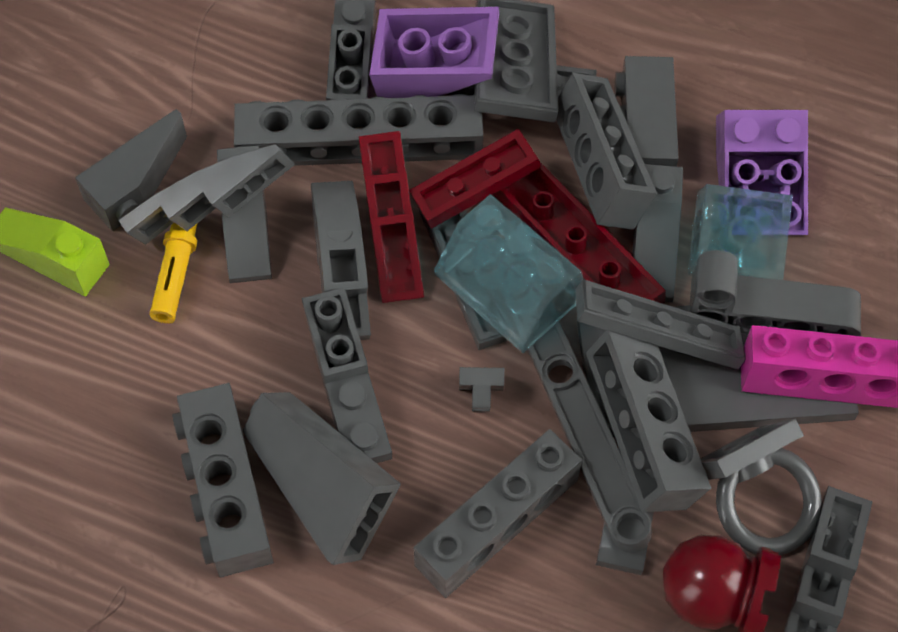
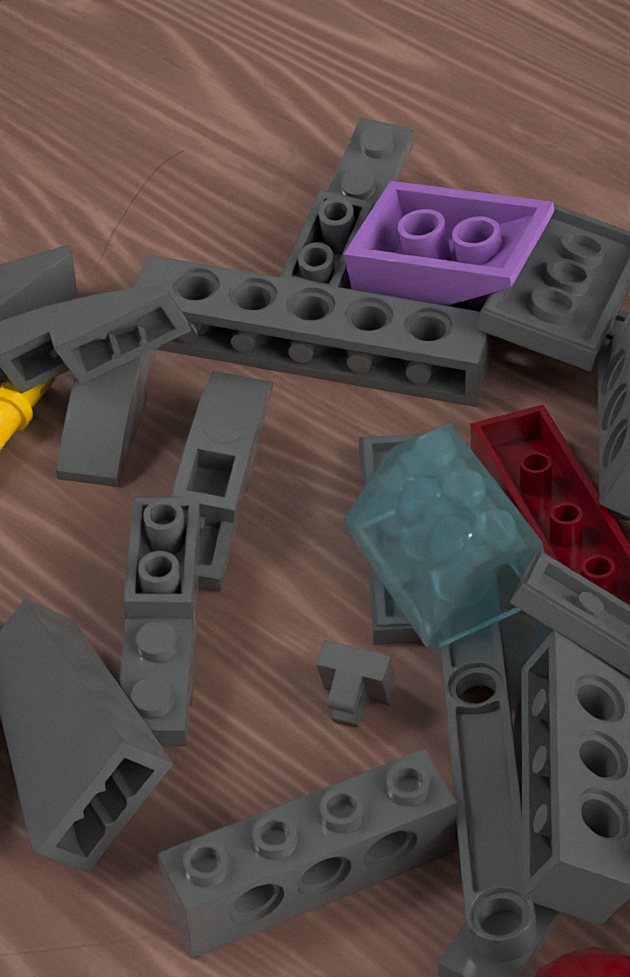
camera: 20 degrees right, 15 degrees down
(391, 217) = (308, 440): dark red slope -> none
(475, 178) = (471, 402): dark red plate -> none

